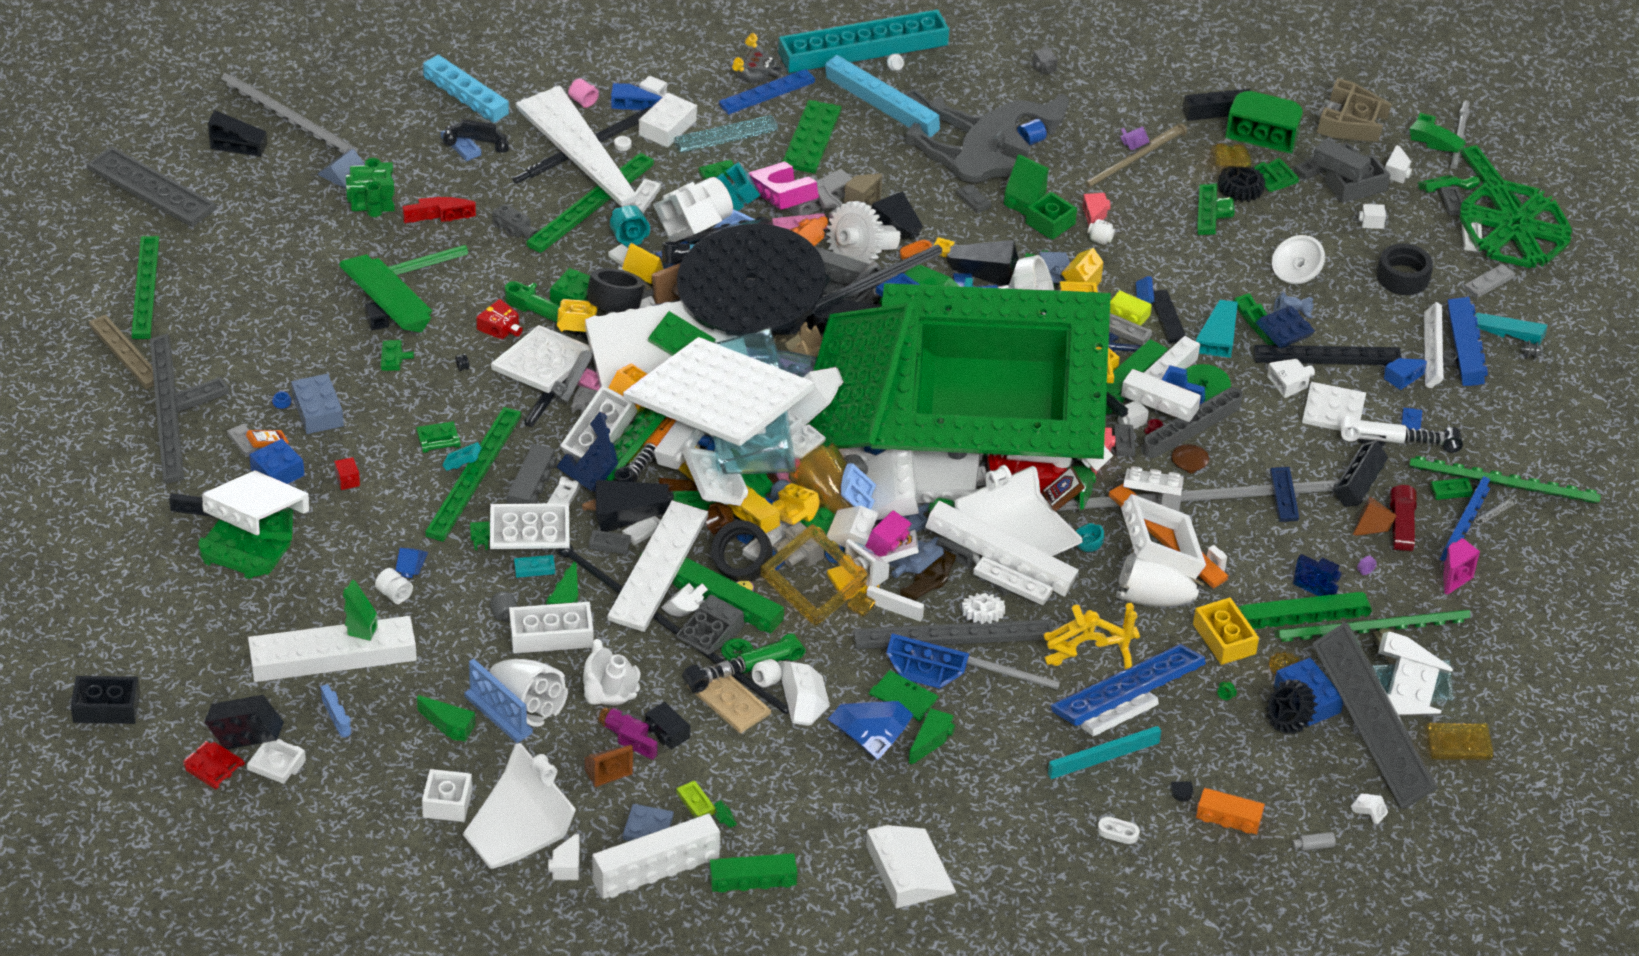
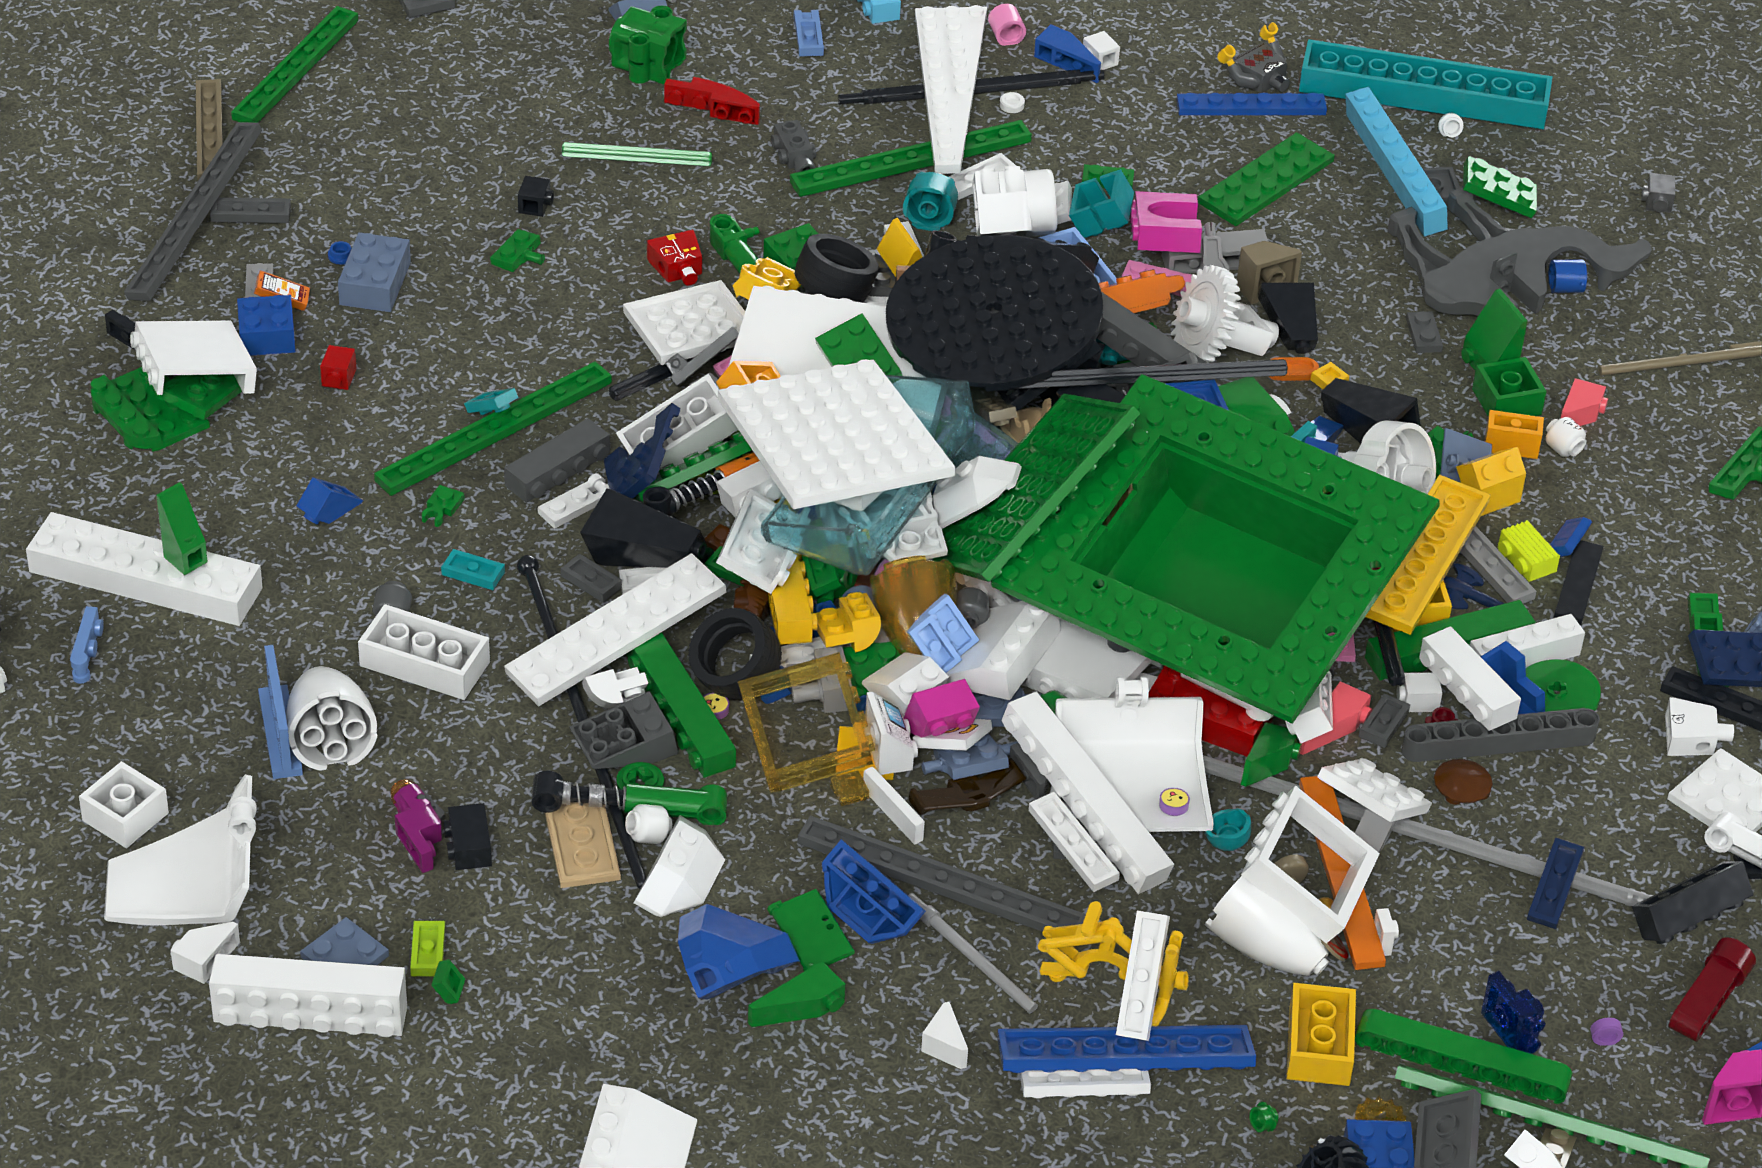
camera: 30 degrees right, 0 degrees up
(388, 292) = (566, 173): green slope -> none
(393, 585) = (280, 523): white wheel -> none
(438, 436) = (489, 367): green plate -> none
(449, 719) = (213, 716): green slope -> none
(462, 362) = (591, 289): black bush -> none
(476, 131) = (833, 24): black plate -> none
(529, 526) = (499, 517): white slope -> none
(567, 589) = (487, 614): green slope -> none
(609, 677) = (437, 742): white piece -> none
(609, 765) = (350, 855): dark orange slope -> none
(667, 119) = (1088, 93): white brick -> none
(726, 133) = (1153, 136): clear light blue plate -> none
(753, 872) = (421, 1073): green brick -> none
(954, 90) = (1500, 186): none -> green plate
(983, 608) = (1006, 861): white gear -> none
(1028, 722) = (944, 1038): none -> white slope
(1051, 534) = (1174, 801): none -> tile
(1063, 489) = (1232, 748): tile -> none
(1073, 240) = (1514, 430): none -> light orange brick
(1104, 752) = (1020, 1125): teal tile -> none
(1120, 637) = (1142, 975): none -> white plate
(1134, 138) = (1710, 333): medium lavender bracket -> none
(1218, 332) = (1635, 628): teal slope -> none
(1374, 518) = (1666, 970): dark orange slope -> none

